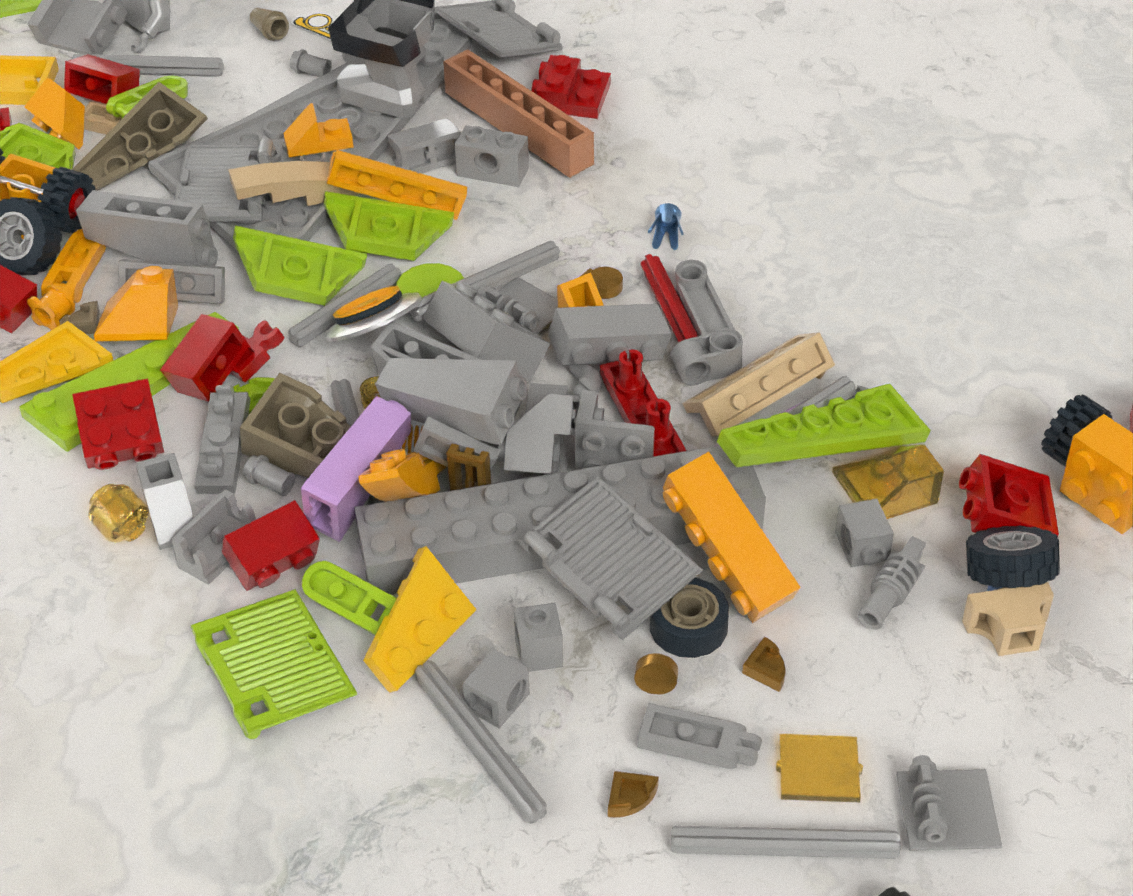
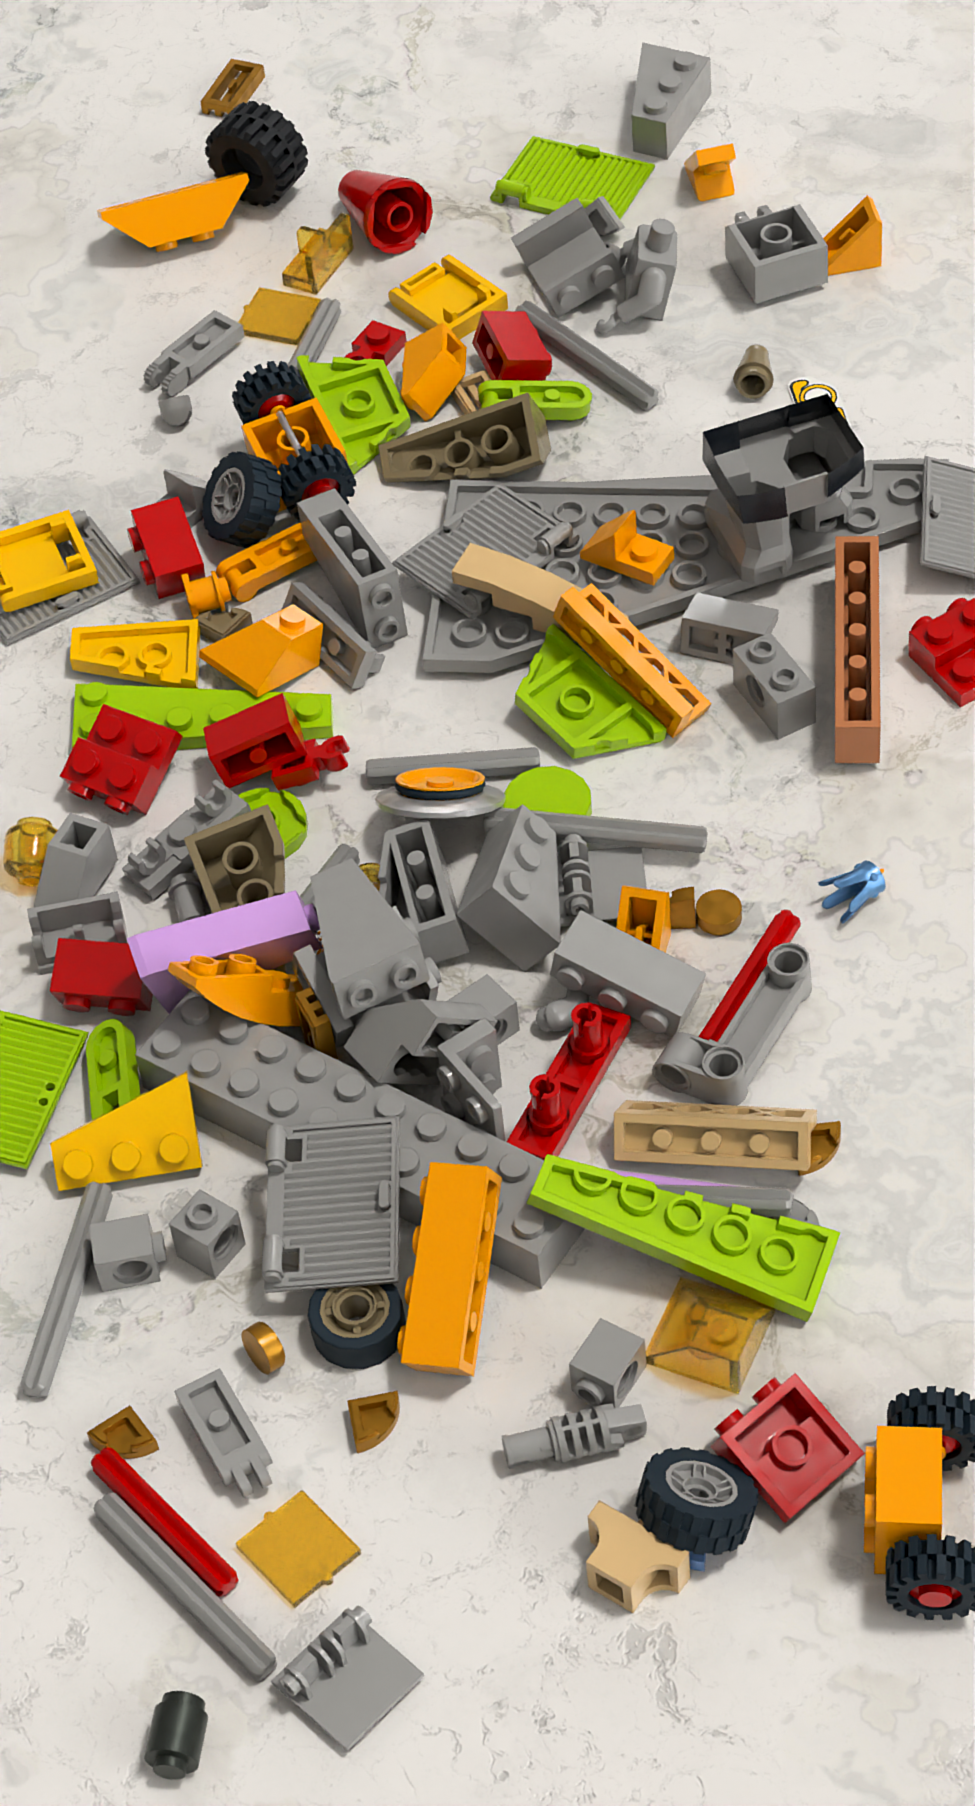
camera: 50 degrees right, 5 degrees up
(296, 266) = (447, 694): lime wing -> none
(667, 815) = (164, 1521): none -> red axle

